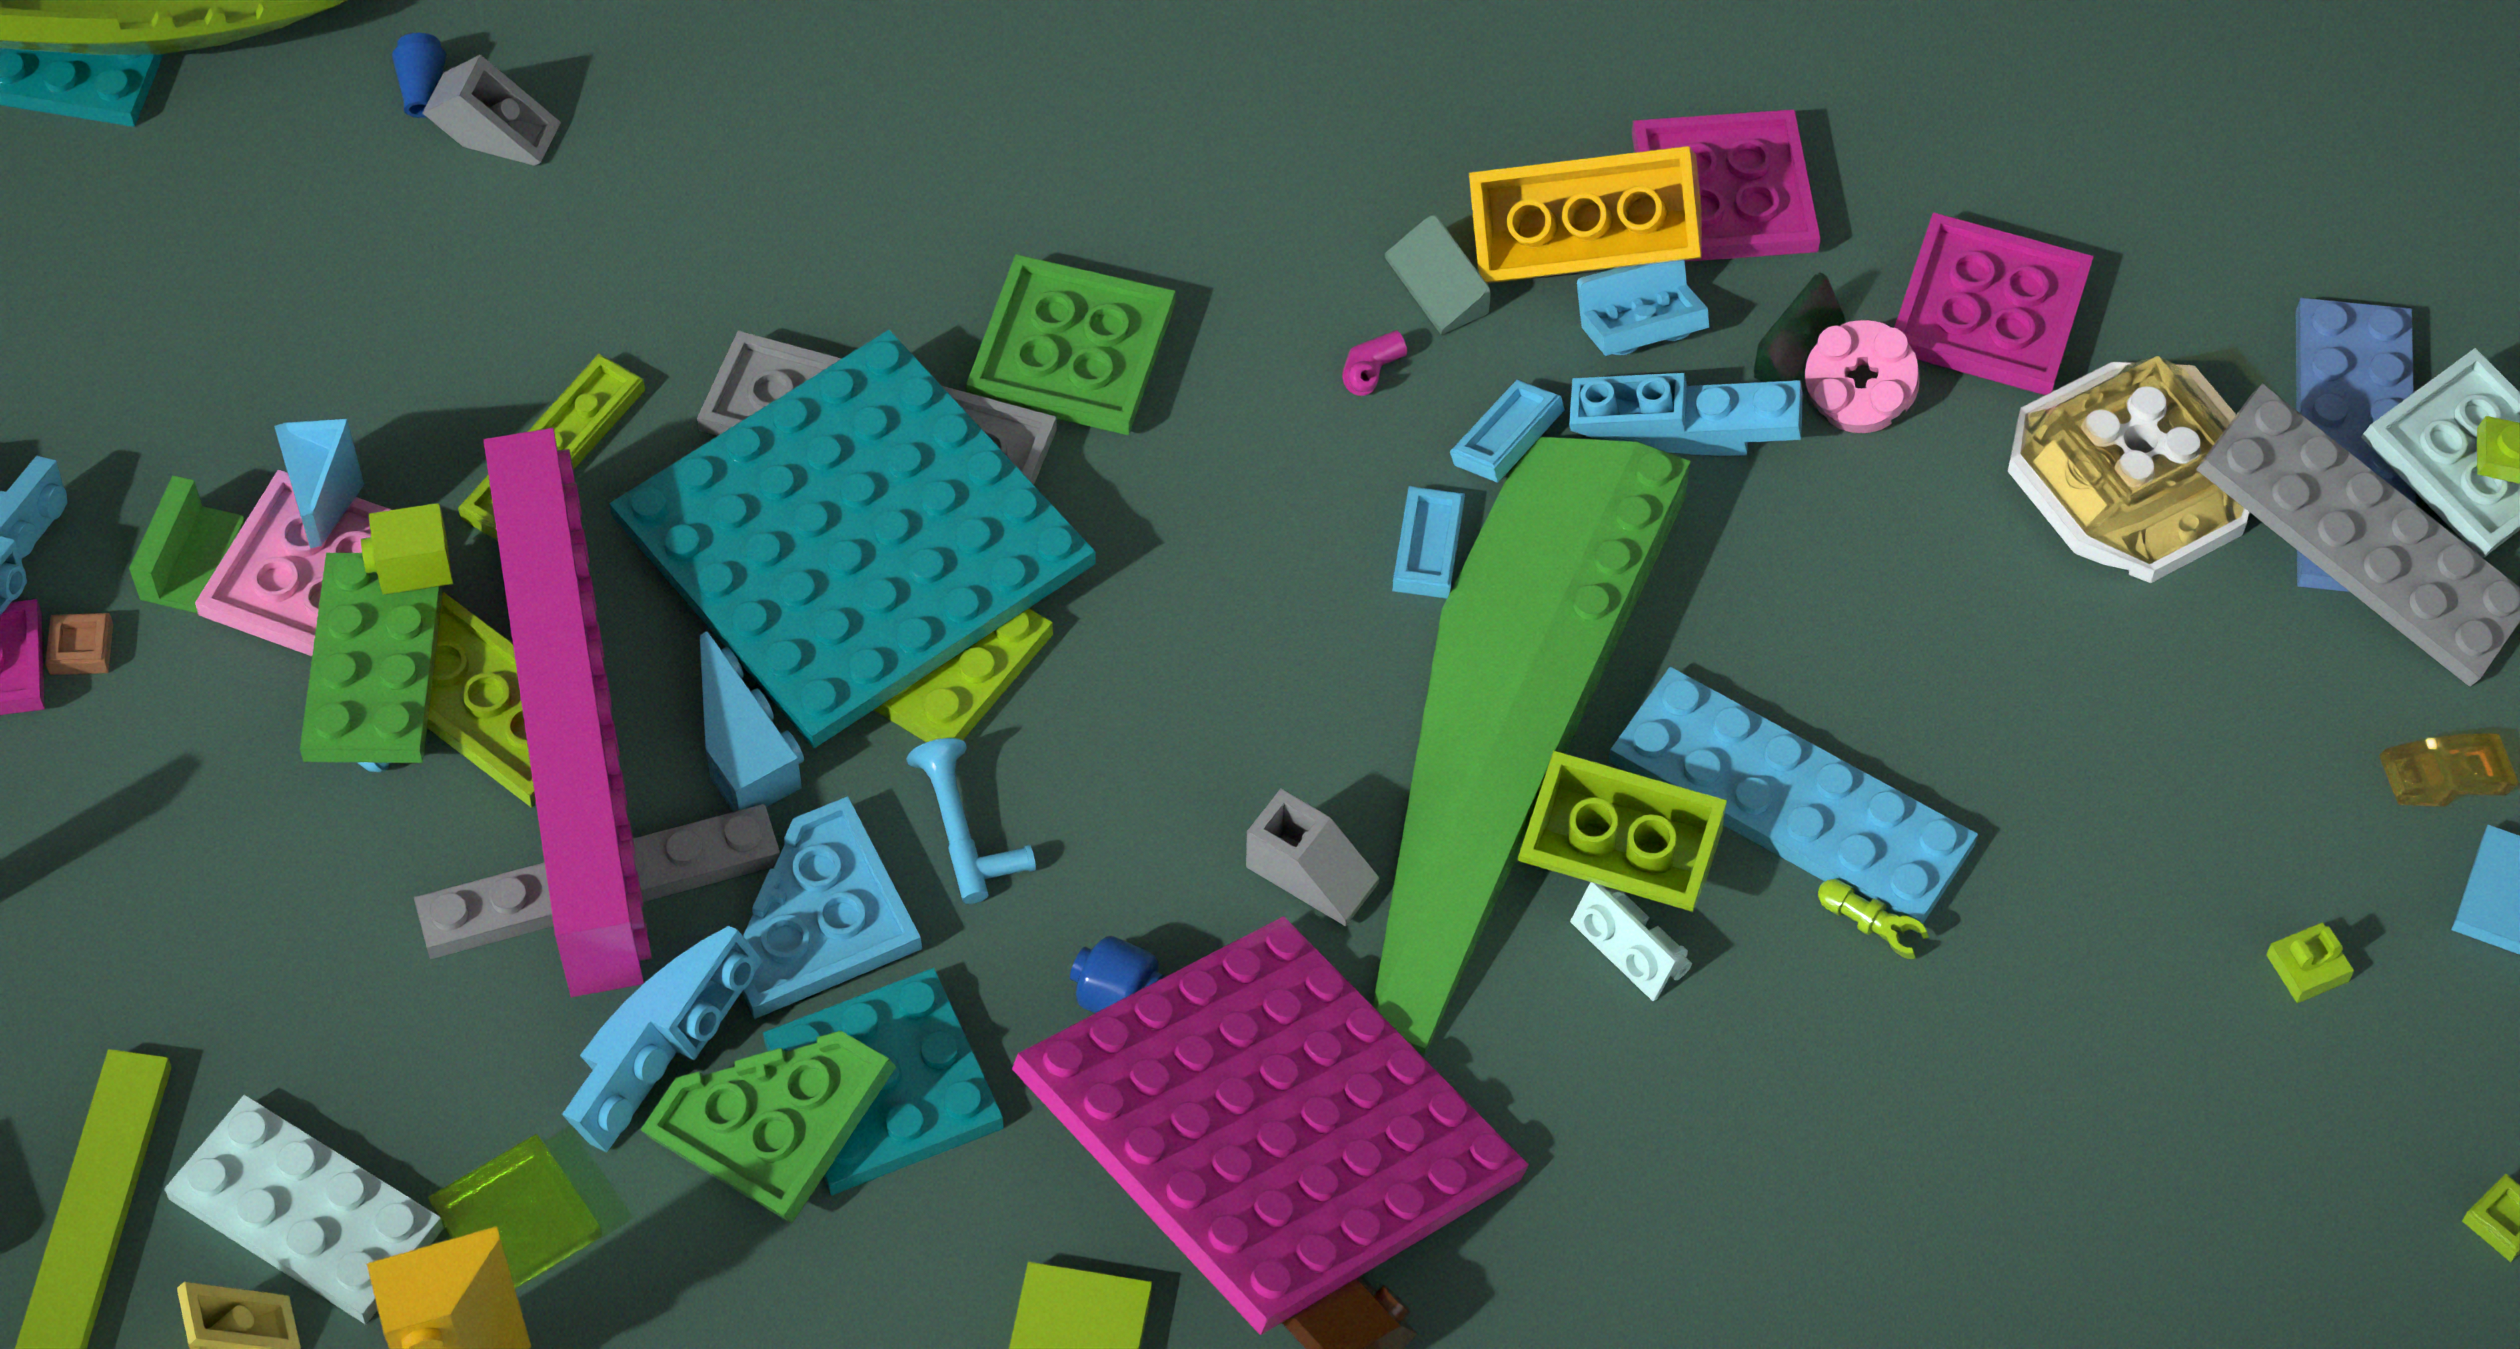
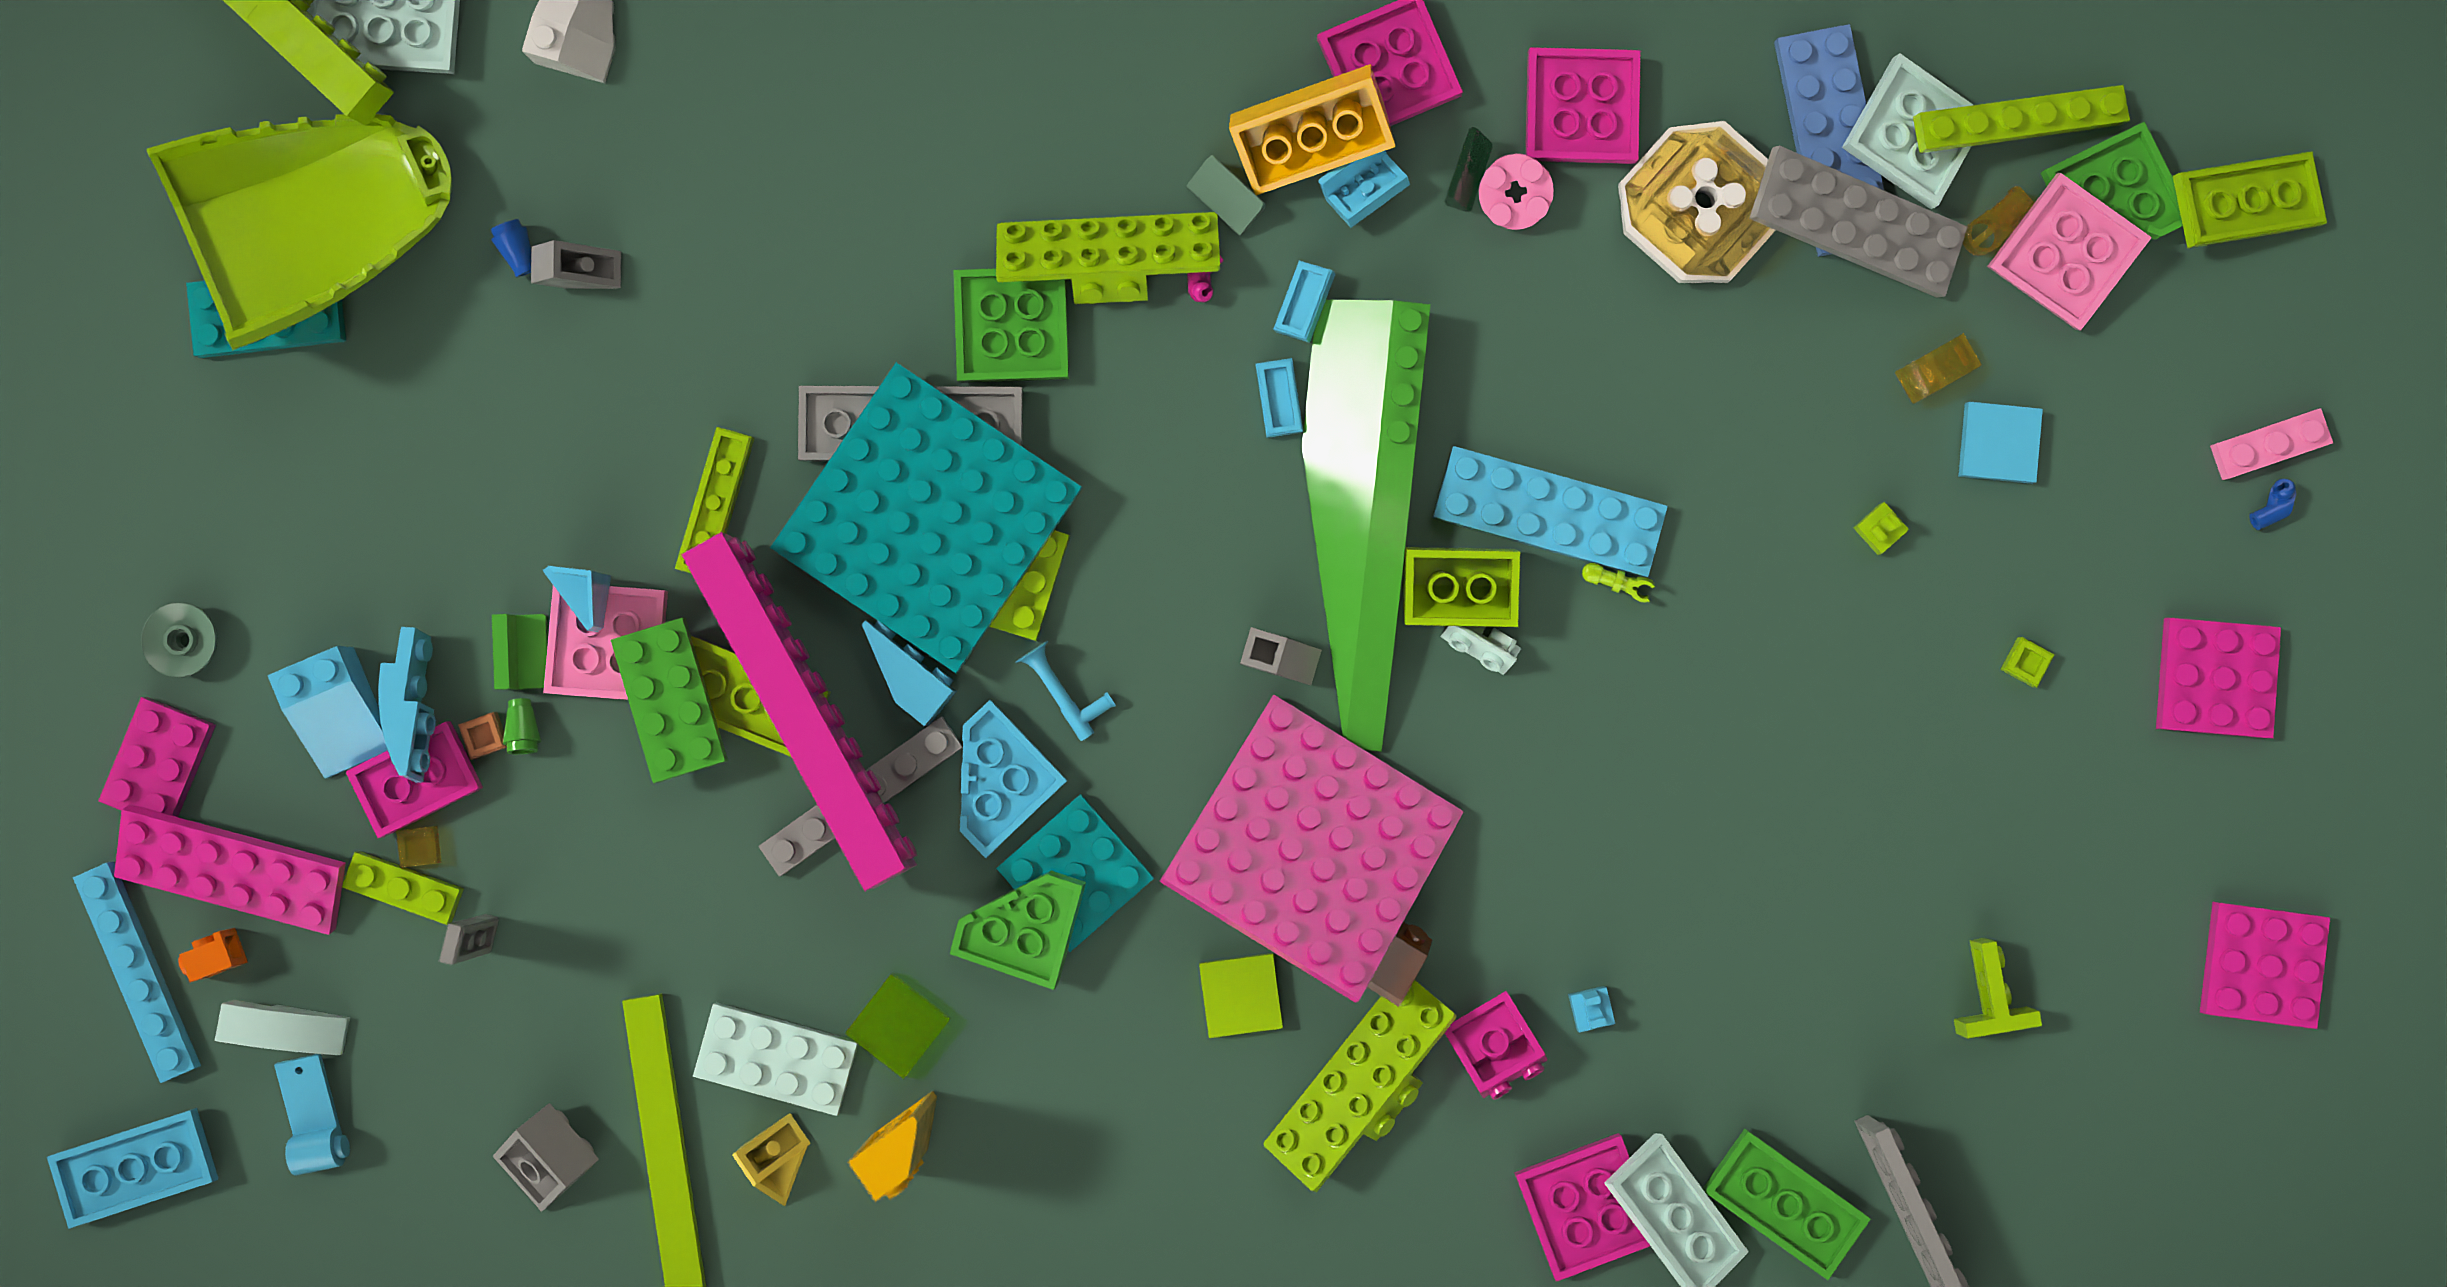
camera: 15 degrees left, 30 degrees up
(138, 645) = (521, 729): none -> bright green cone
(408, 549) = (663, 635): lime brick -> none
(665, 1016) = (940, 884): medium azure slope -> none
(1112, 972) = (1190, 771): blue head -> none
(1243, 305) = (1109, 254): none -> lime bracket
(1685, 418) = (1413, 256): medium azure slope -> none

